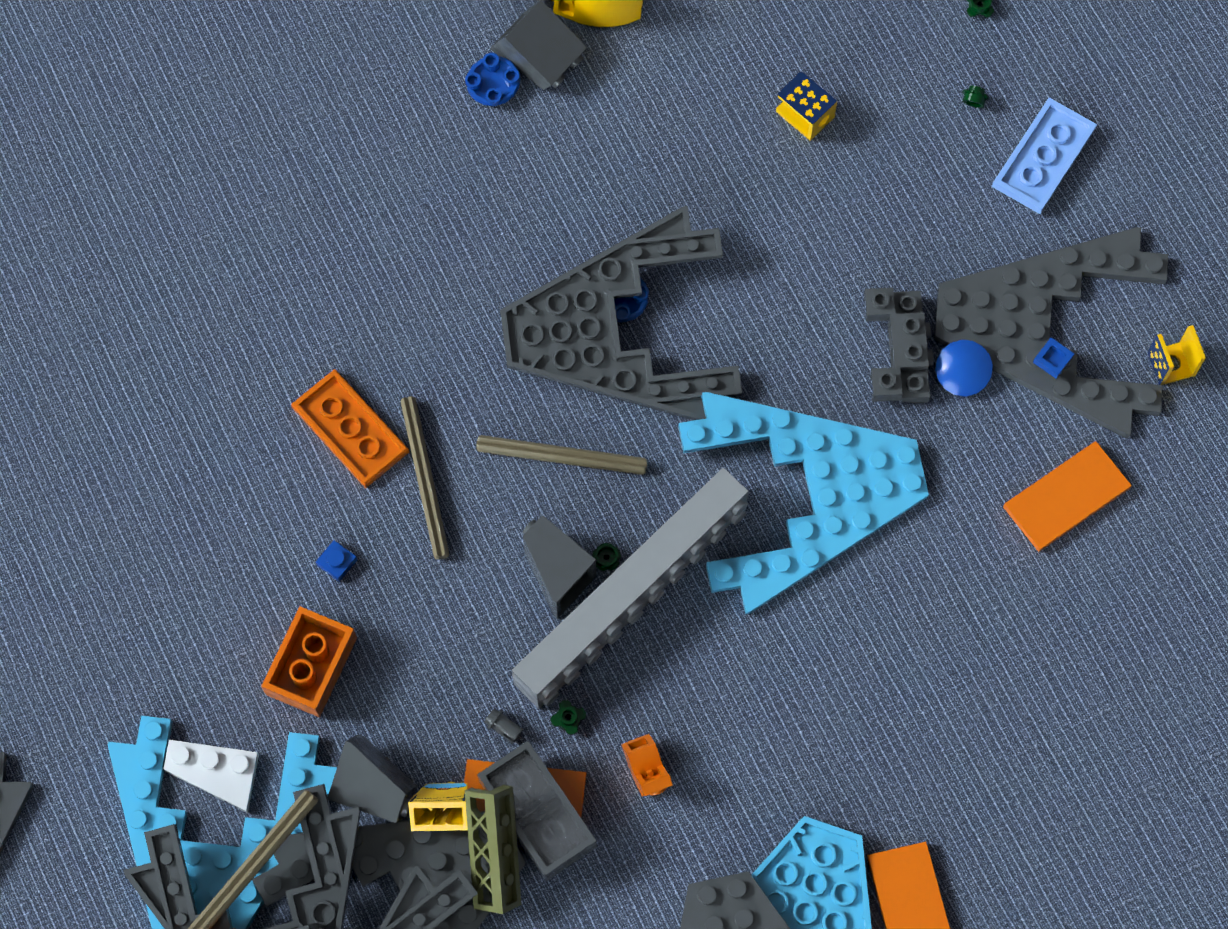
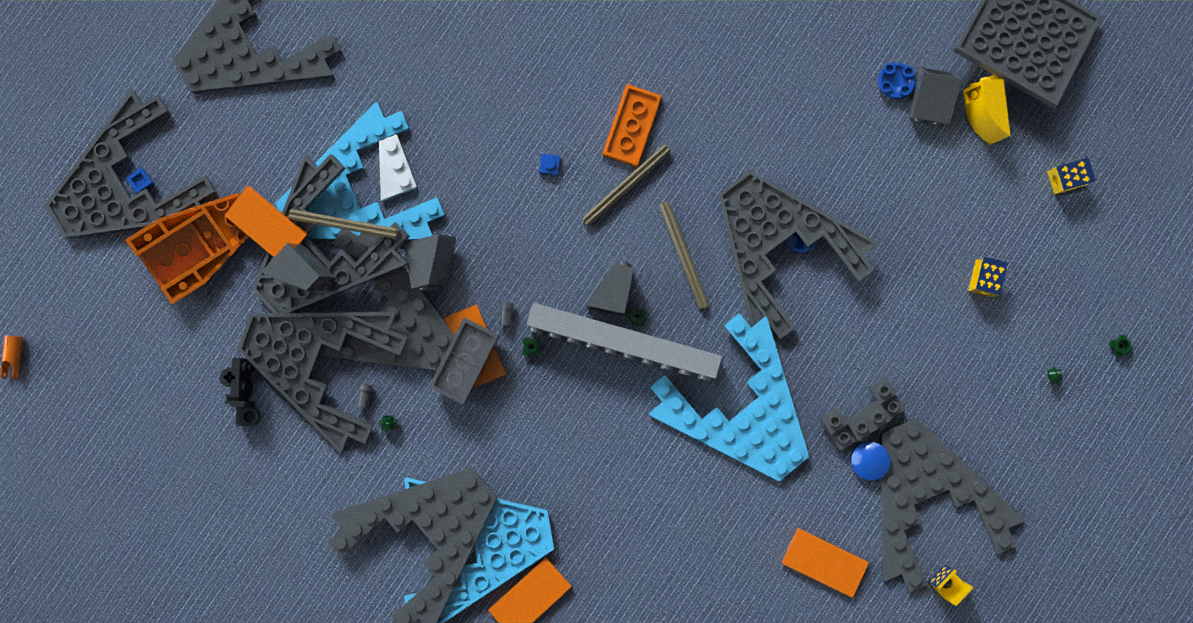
camera: 65 degrees right, 15 degrees up
(309, 661) = (480, 185): orange brick -> none
(442, 805) = (436, 307): yellow torso -> none
(499, 851) = (427, 354): olive fence -> none
(646, 766) = (525, 407): orange brick -> none
(1044, 155) = (1039, 438): light blue plate -> none
(1053, 358) = (905, 512): blue plate -> none

